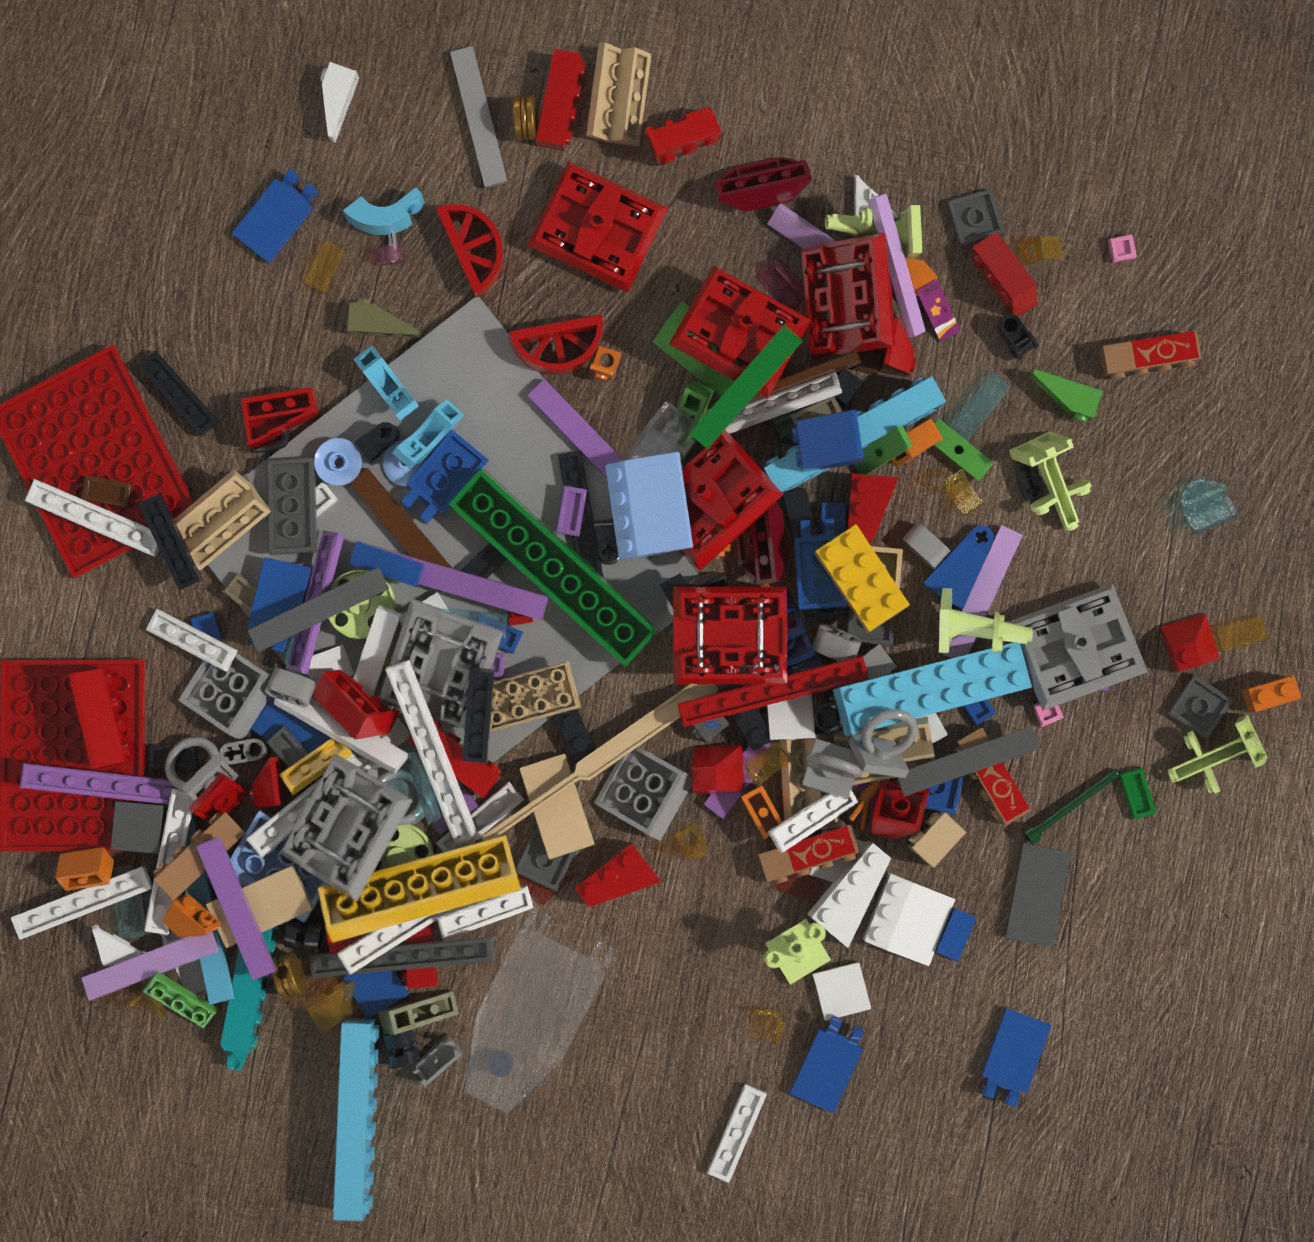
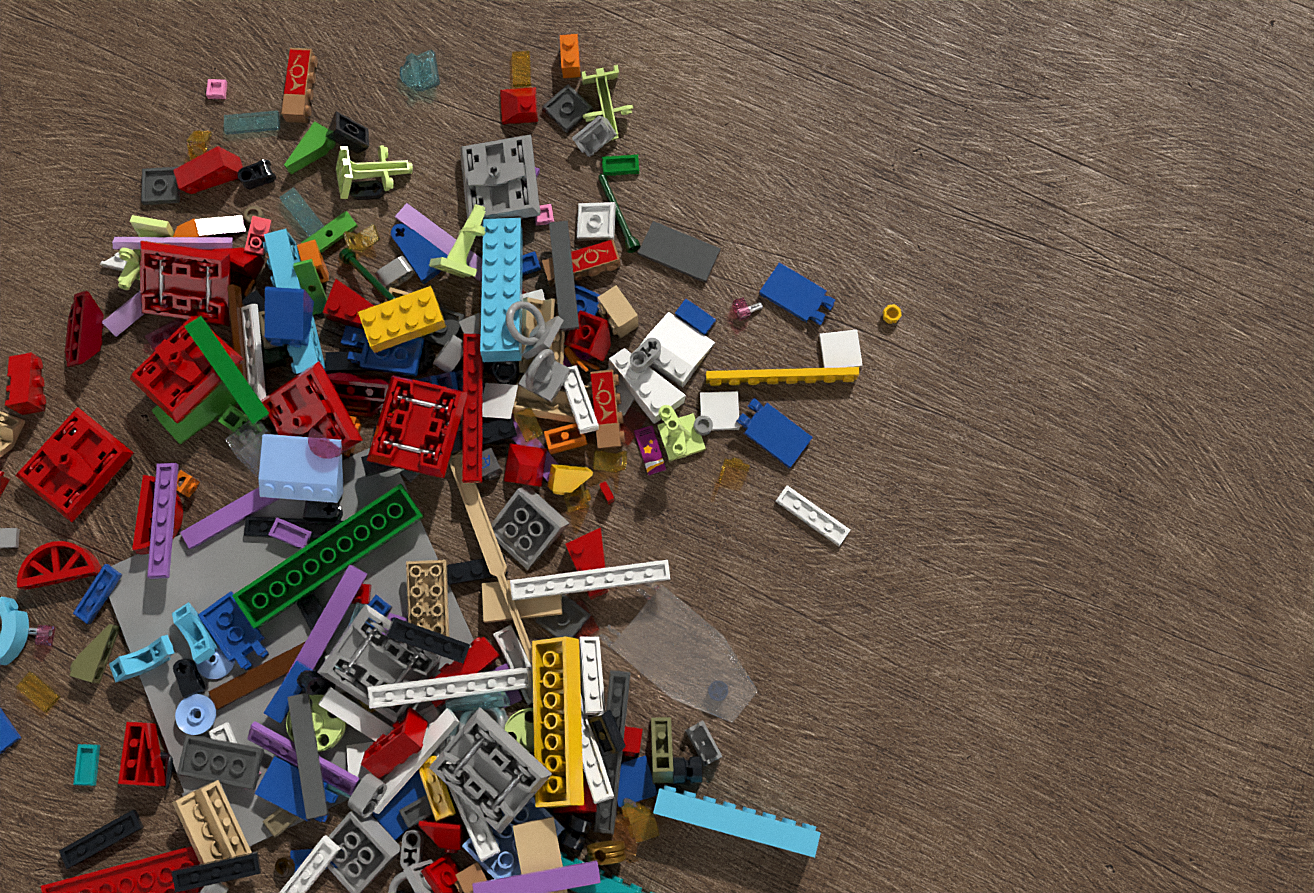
camera: 75 degrees left, 10 degrees down
(193, 611) = (285, 867): none -> dark brown tile
(256, 349) = (86, 765): none -> teal tile
(402, 593) = (314, 682): none -> black piece
(419, 948) = (606, 733): none -> black slope
(451, 302) = (97, 594): none -> blue tile
(551, 358) = (162, 521): none -> medium lavender tile
(593, 886) = (590, 580): none -> white tile
(678, 529) = (322, 446): none -> clear pink tile
(707, 877) = (607, 492): none -> red tile
(714, 826) = (567, 478): none -> yellow slope
(747, 872) = (609, 461): none -> clear yellow bracket
(773, 916) = (650, 450): none -> magenta sticker
(817, 976) = (703, 425): none -> light grey tile
(891, 886) = (641, 353): none -> light grey beam
(904, 1070) = (773, 376): none -> yellow plate
(933, 364) = (255, 239): none -> coral slope
(933, 482) = (349, 257): none -> dark green piece
(953, 1125) = (840, 349): none -> white tile
(962, 346) = (252, 211): none -> dark tan tile
(978, 991) = (742, 310): none -> clear pink piece
(1015, 1181) = (891, 314): none -> yellow tile
(1052, 781) = (596, 221): none -> white tile
(1087, 307) = (251, 122): none -> clear light blue tile
(1097, 438) = (348, 133): none -> black slope
(1165, 753) = (594, 136): none -> light grey hinge

